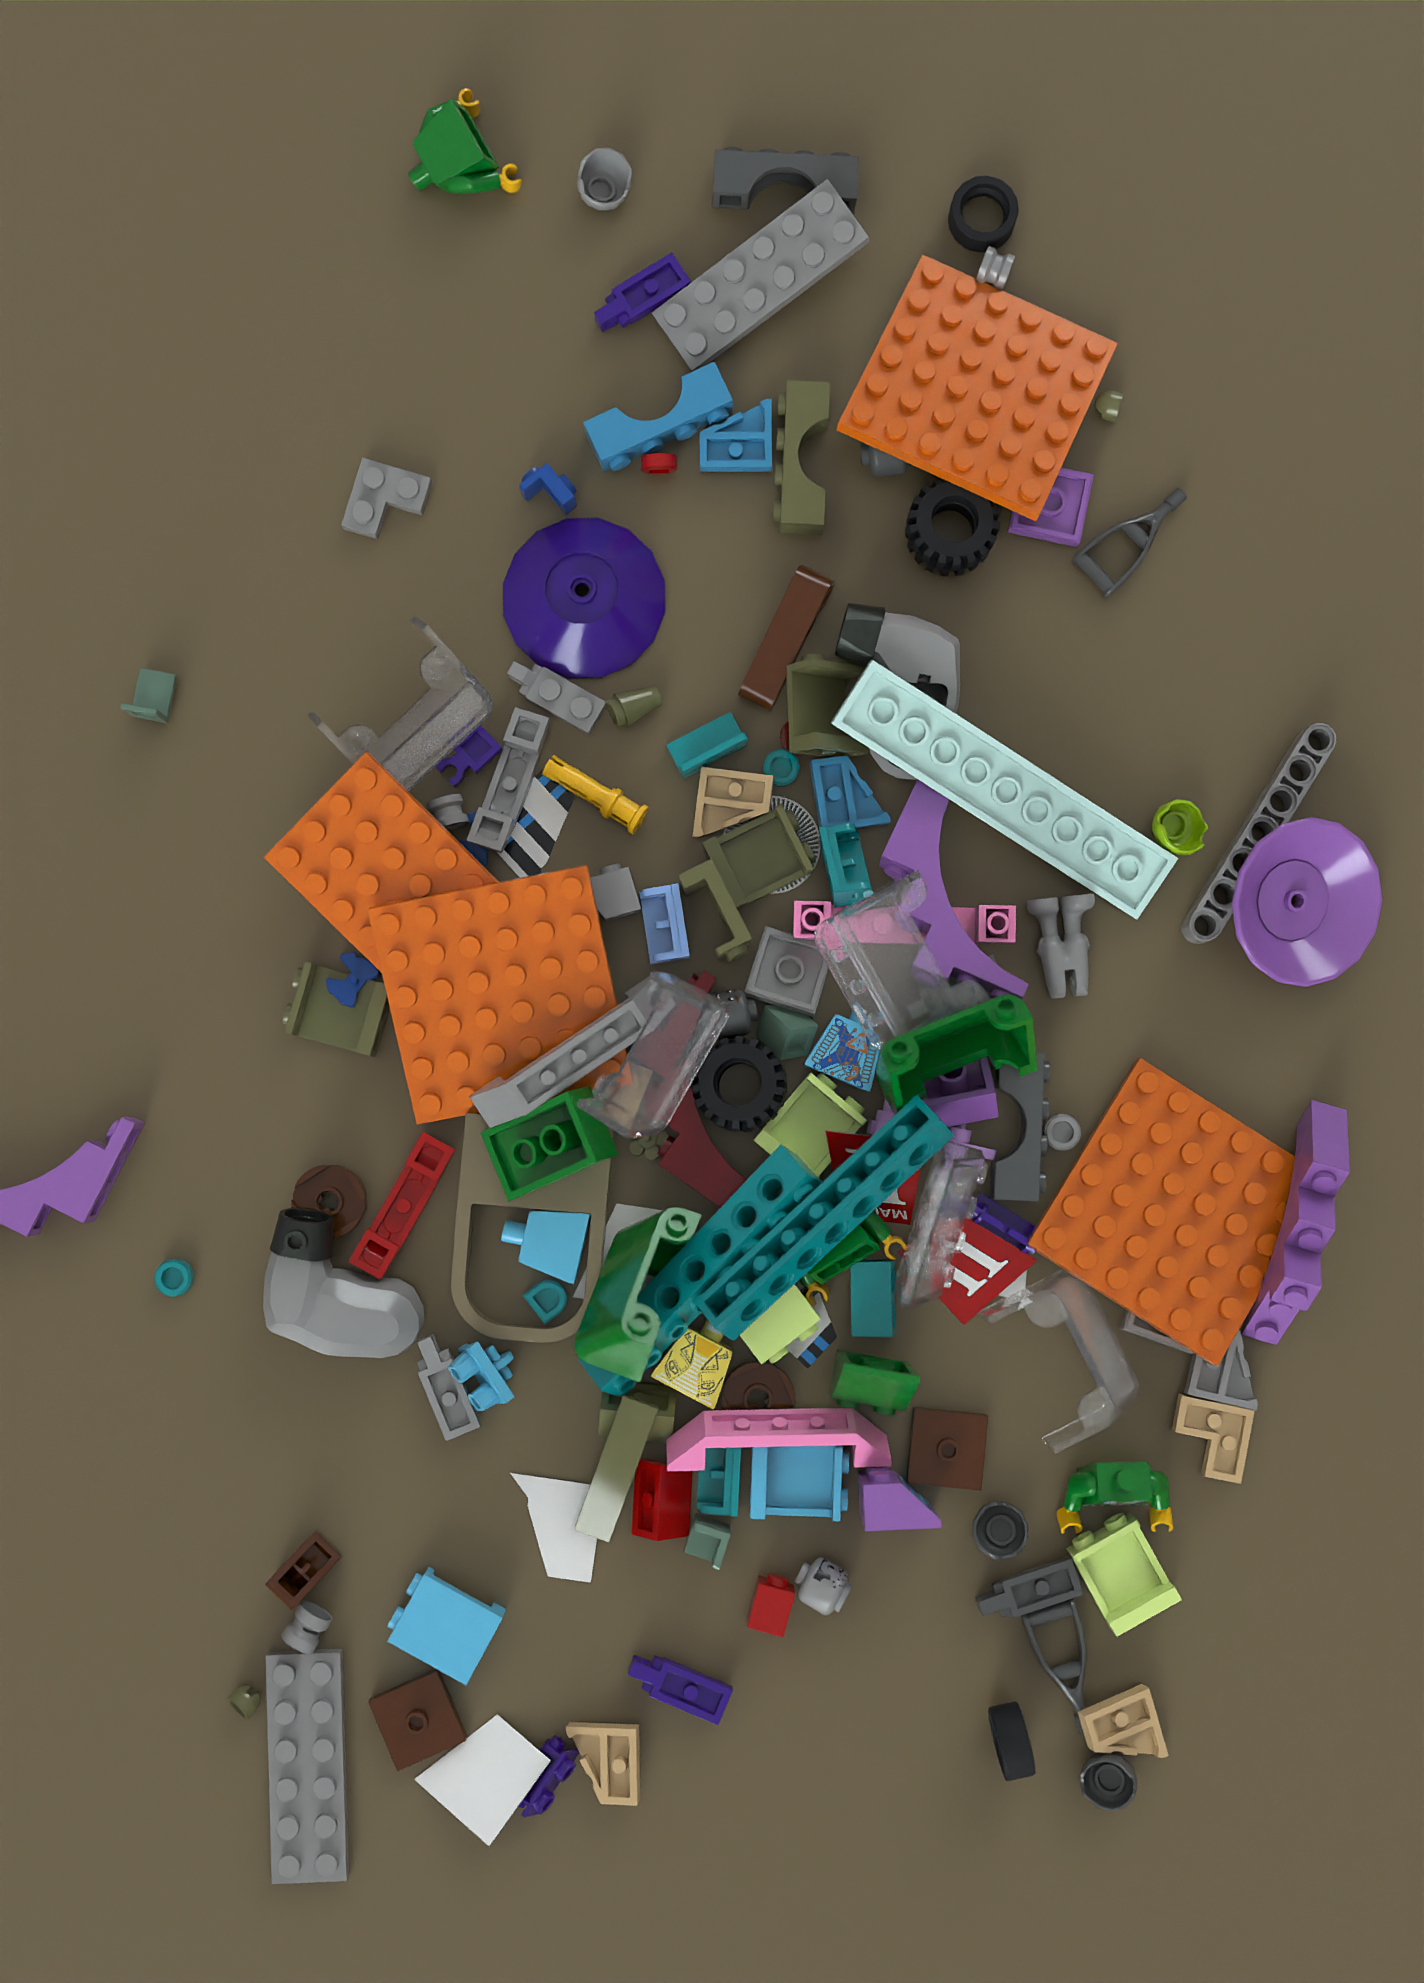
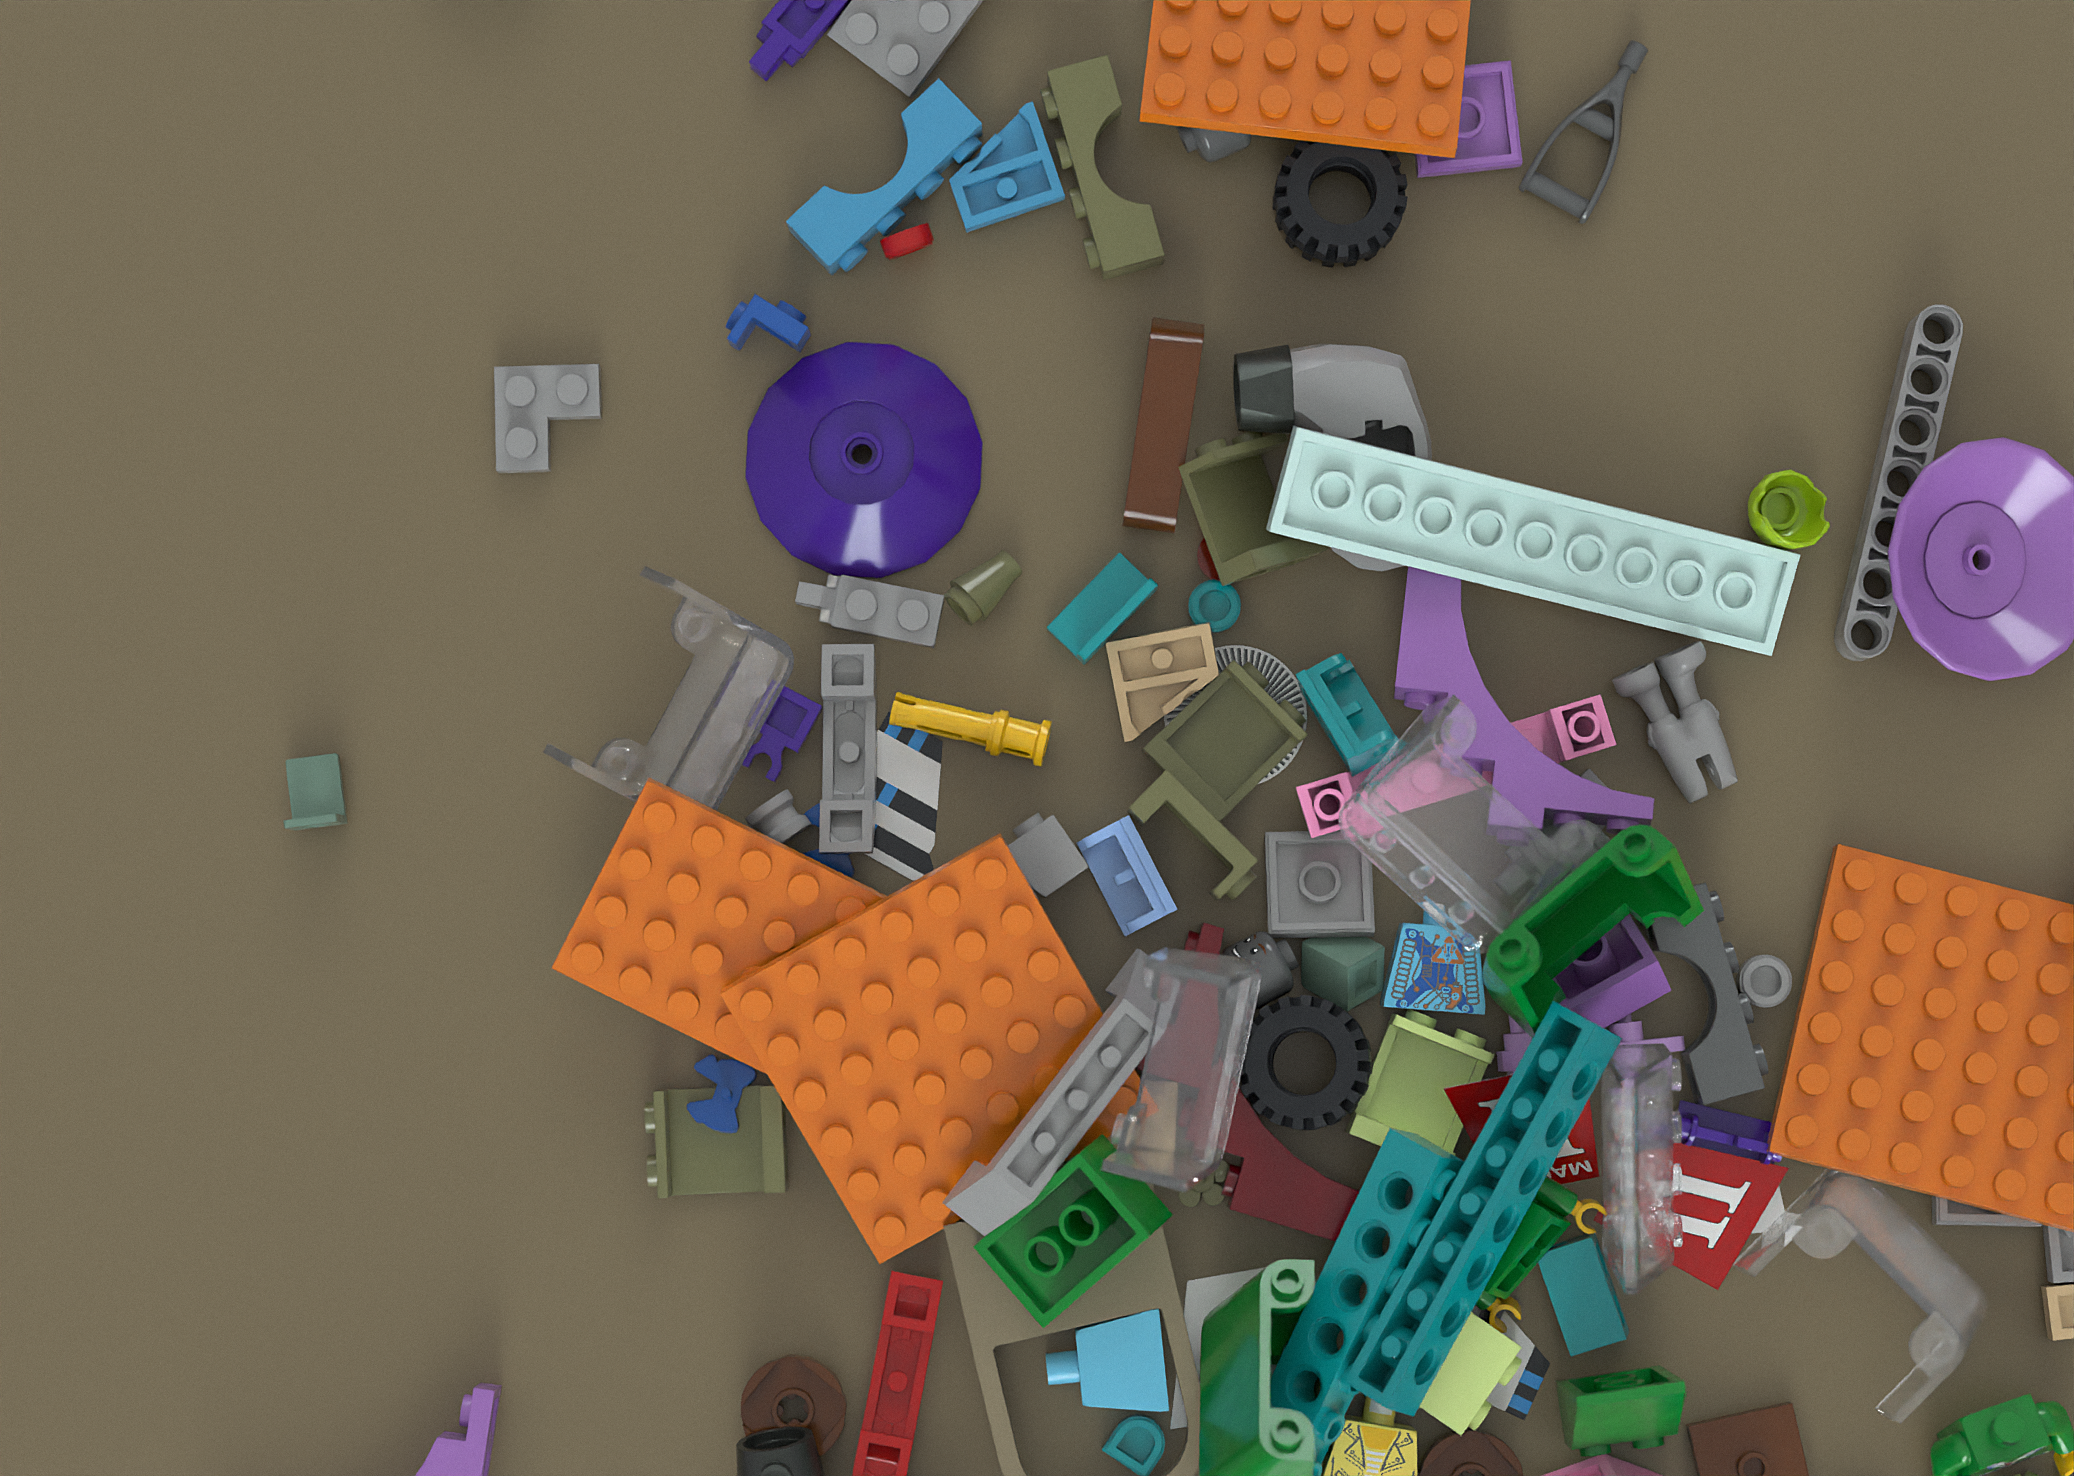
camera: 15 degrees left, 0 degrees up
(843, 796) = (1313, 617): dark azure wing -> none

